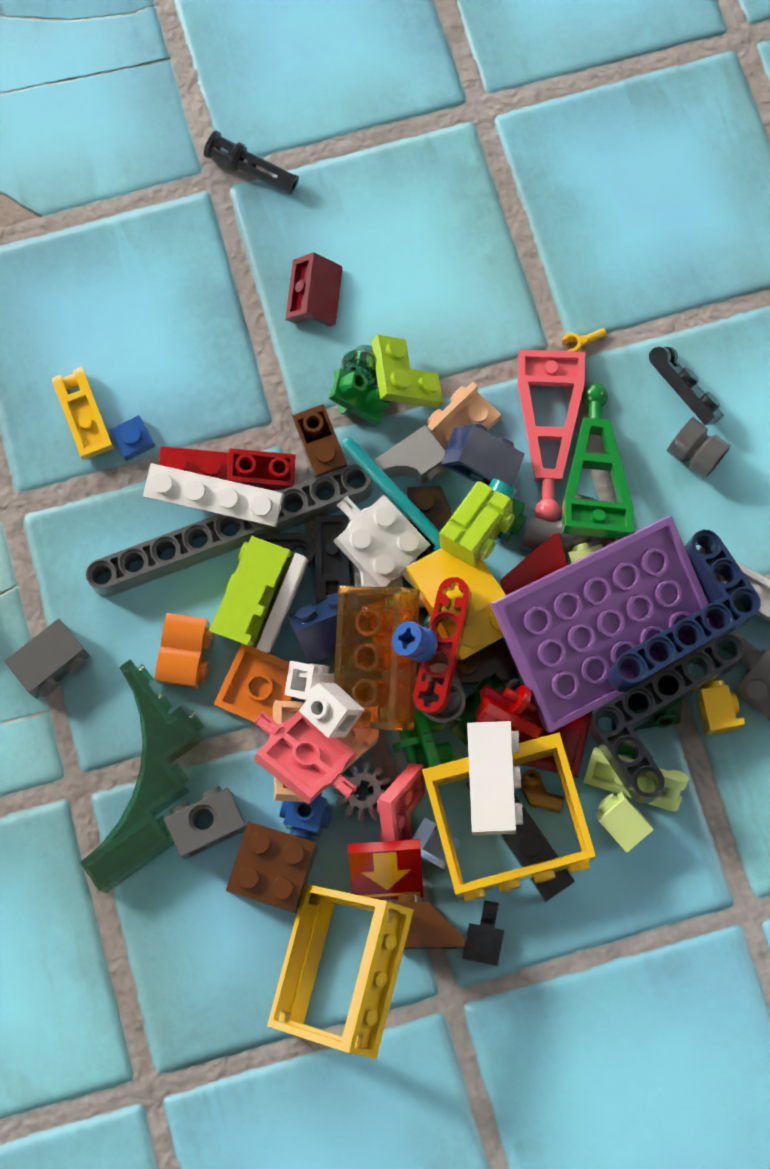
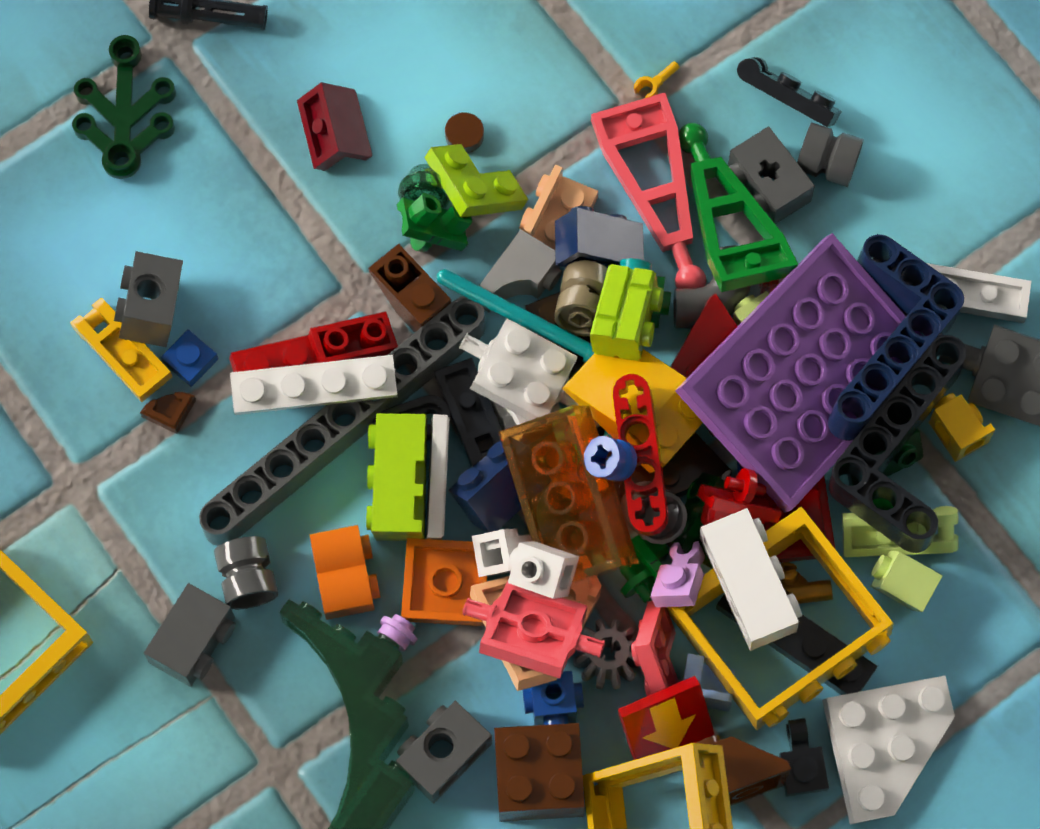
camera: 25 degrees left, 5 degrees down
(102, 474) = (169, 410): none -> reddish brown tile
(107, 625) = (247, 578): none -> dark grey wheel
(112, 398) = (142, 318): none -> dark grey brick
(157, 226) = (124, 114): none -> dark green plant
(206, 714) = (398, 630): none -> lavender plate
(414, 329) = (465, 130): none -> reddish brown tile
(439, 757) = (679, 582): none -> lavender plate
(449, 495) = (579, 296): none -> dark tan wheel
(558, 945) = (885, 742): none -> white plate
(646, 431) = (768, 157): none -> dark grey brick

